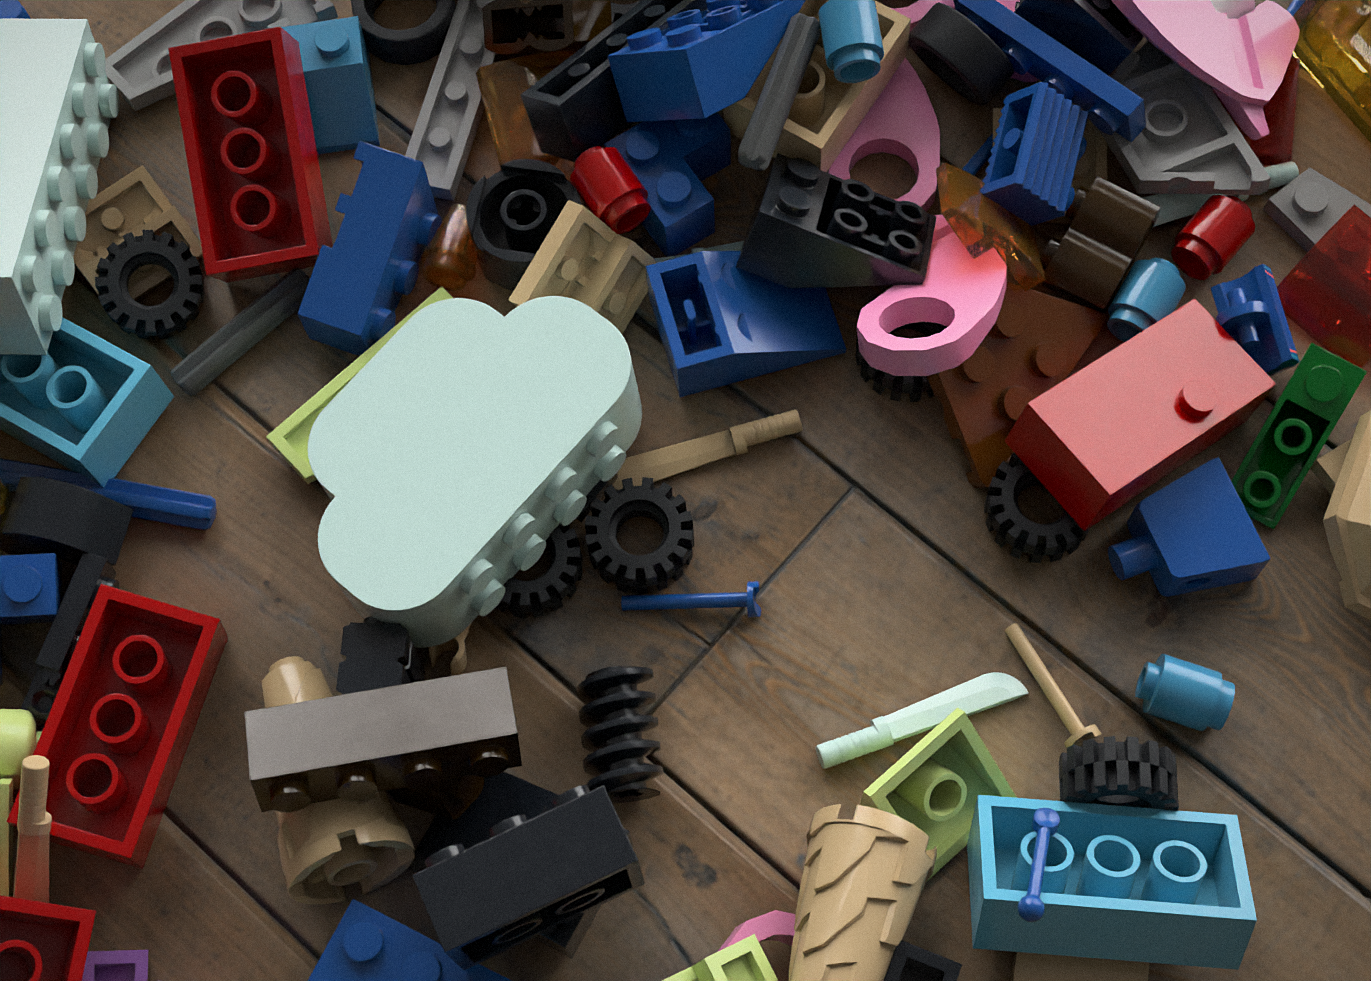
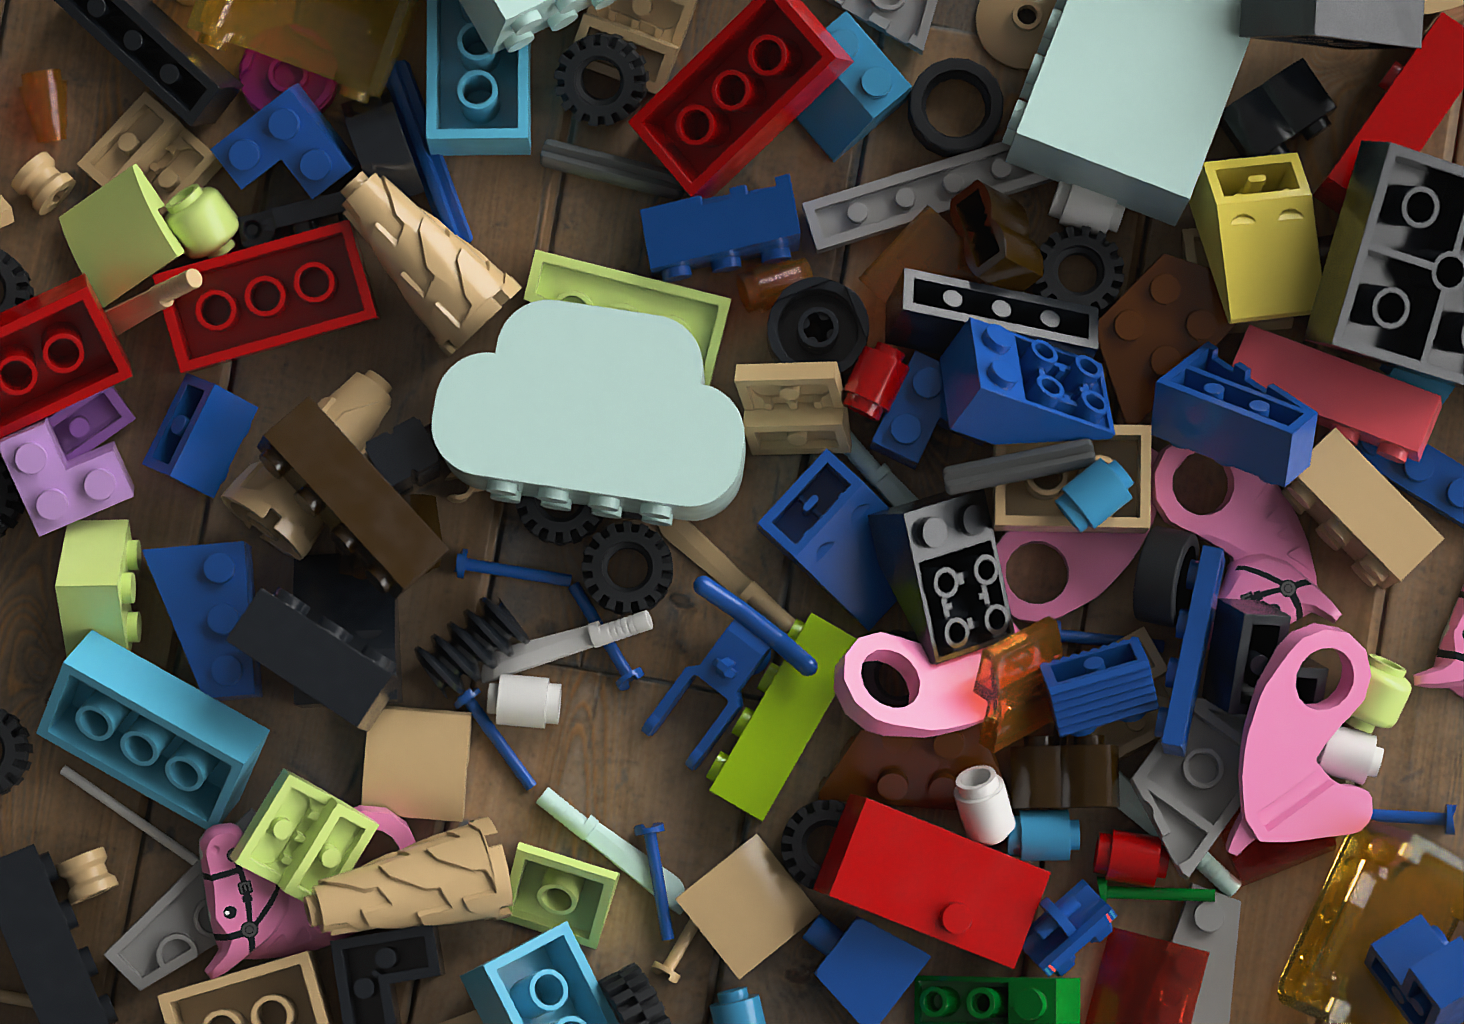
camera: 55 degrees right, 15 degrees up
(211, 883) = (200, 435): none -> blue brick
(220, 532) = (435, 270): none -> tan cone
(530, 695) = (499, 569): none -> blue piece
(674, 774) = (468, 699): none -> blue piece
(677, 641) = (566, 643): none -> white piece
(709, 865) = (418, 763): none -> tan slope
(712, 713) = (524, 701): none -> white brick
(799, 479) = (732, 661): none -> blue piece
(887, 470) = (782, 723): none -> lime brick
(976, 689) = (657, 877): none -> blue piece
(1045, 824) = (568, 979): blue hinge -> none
(1060, 616) = (748, 906): none -> tan slope
(1088, 321) = (983, 805): none -> white brick
(1261, 233) = (1153, 893): none -> green piece

